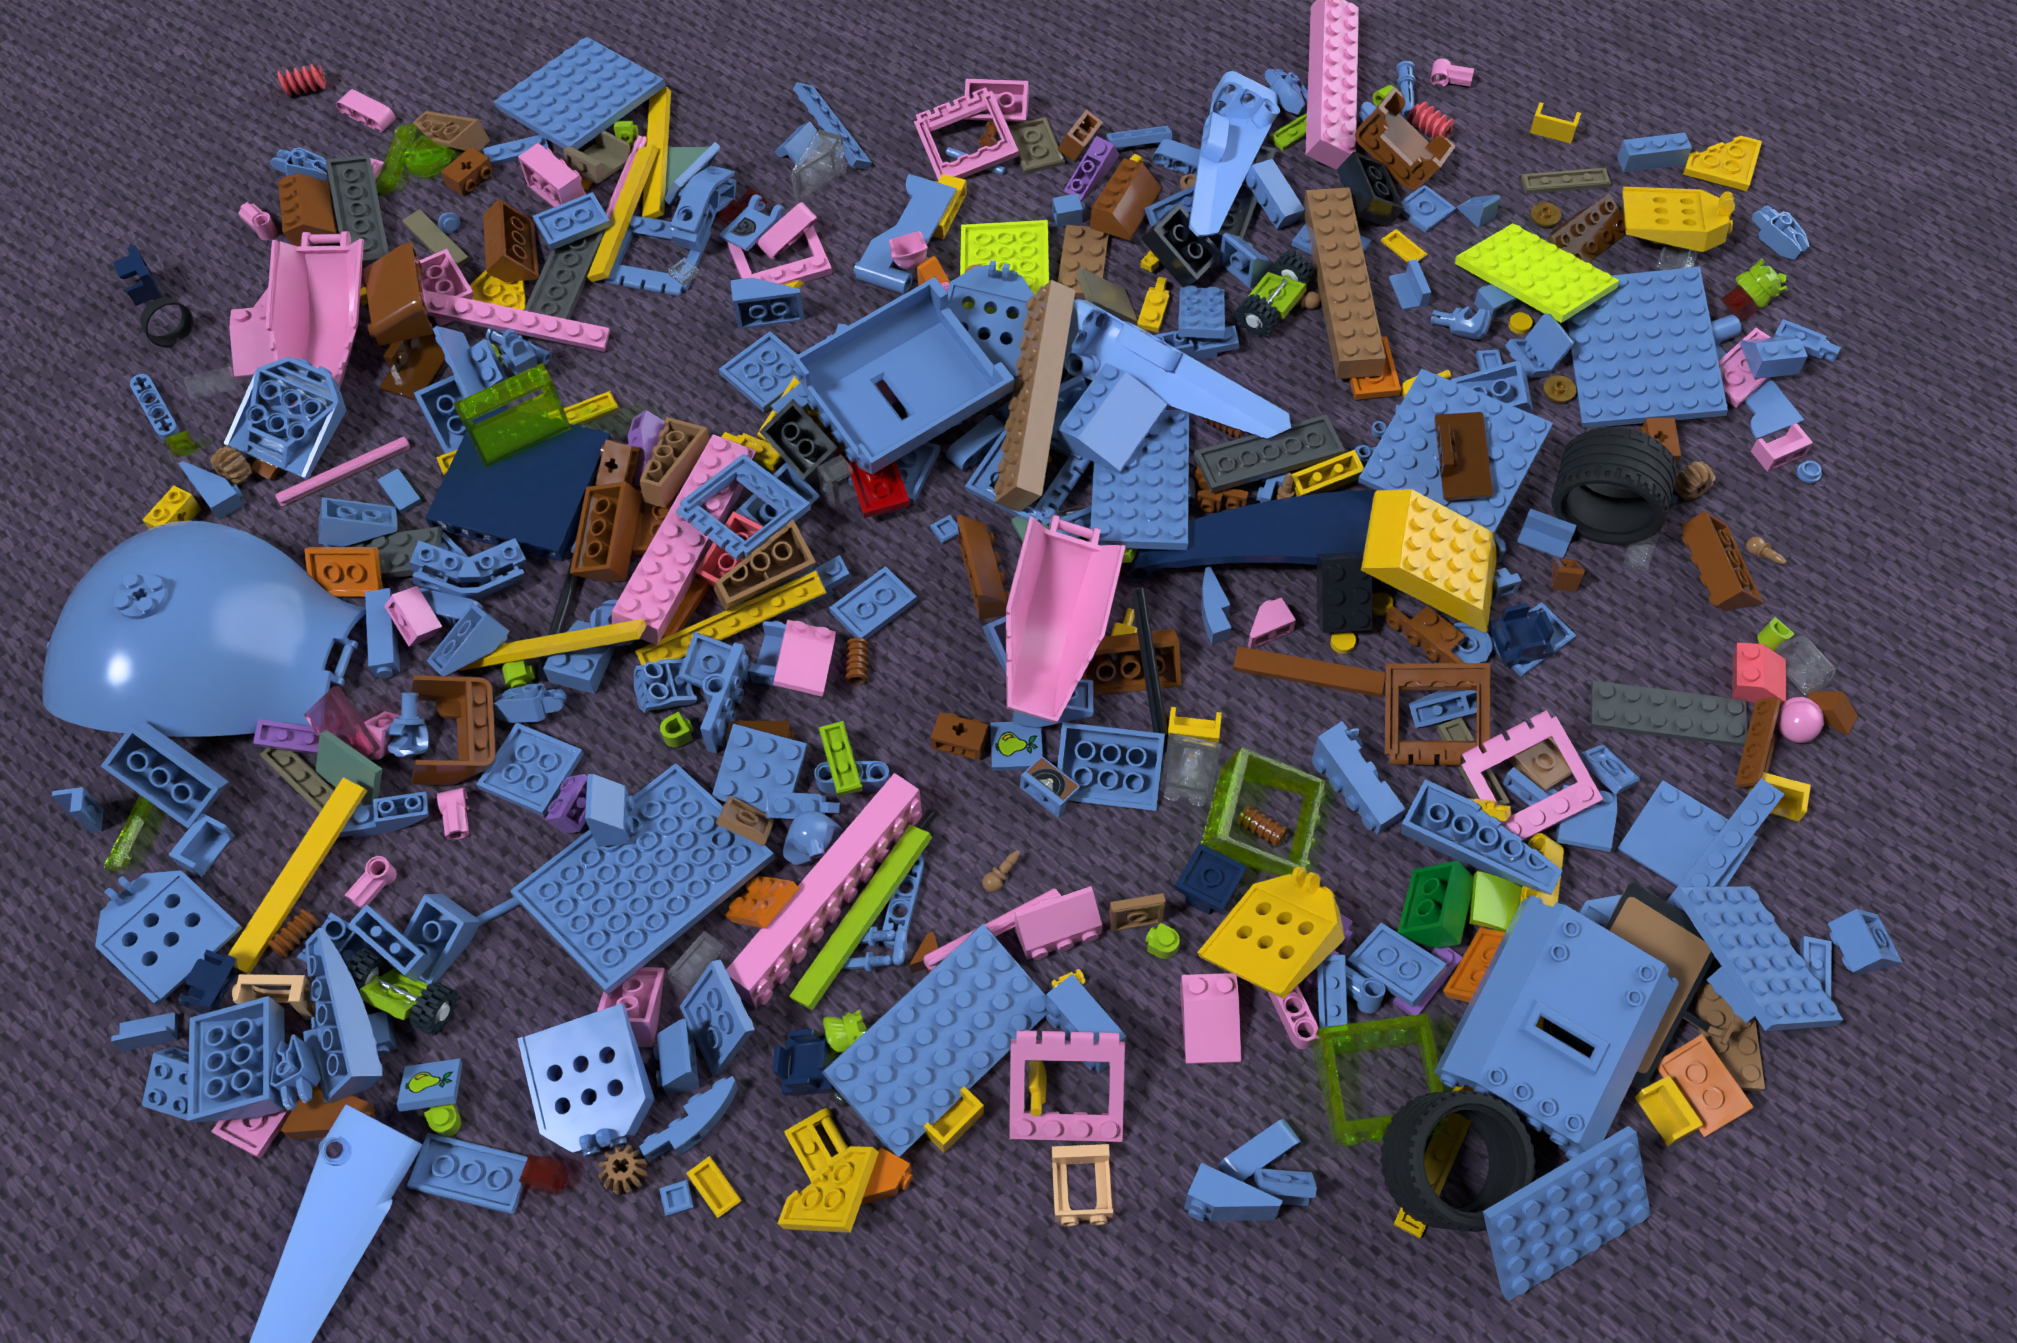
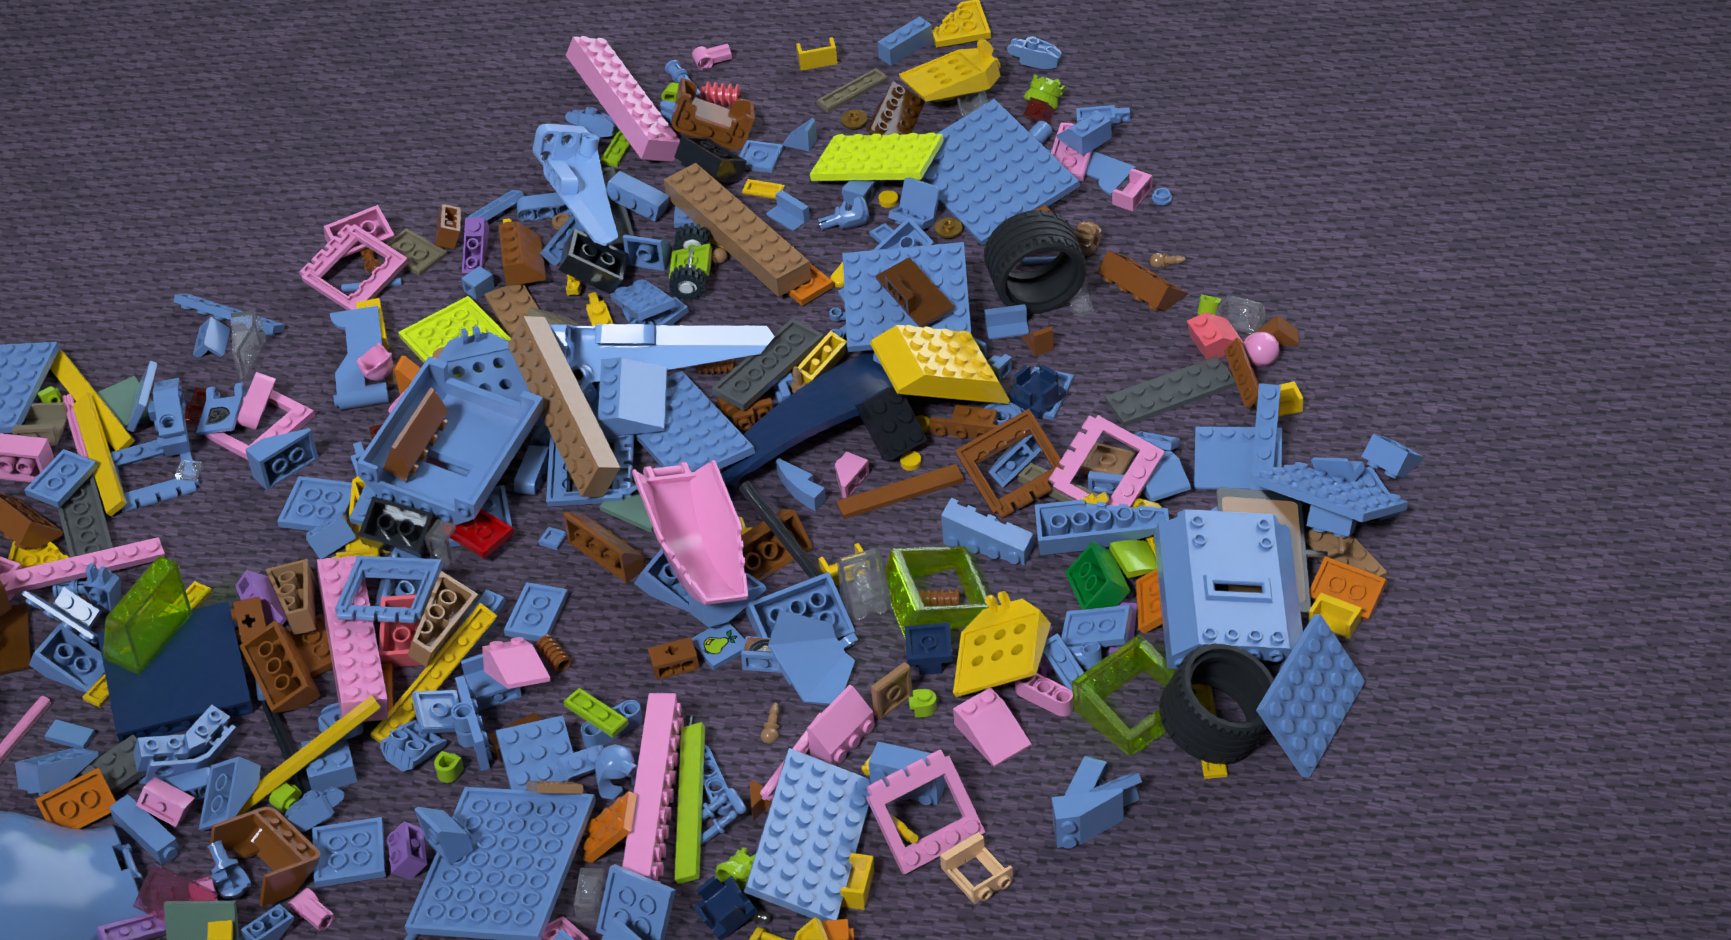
camera: 30 degrees left, 15 degrees down
(749, 410) = (330, 535): none -> medium blue panel
(873, 356) = (417, 436): none -> dark orange slope
(1087, 823) = (811, 657): none -> medium blue panel
(1790, 922) = (1339, 466): none -> medium blue panel

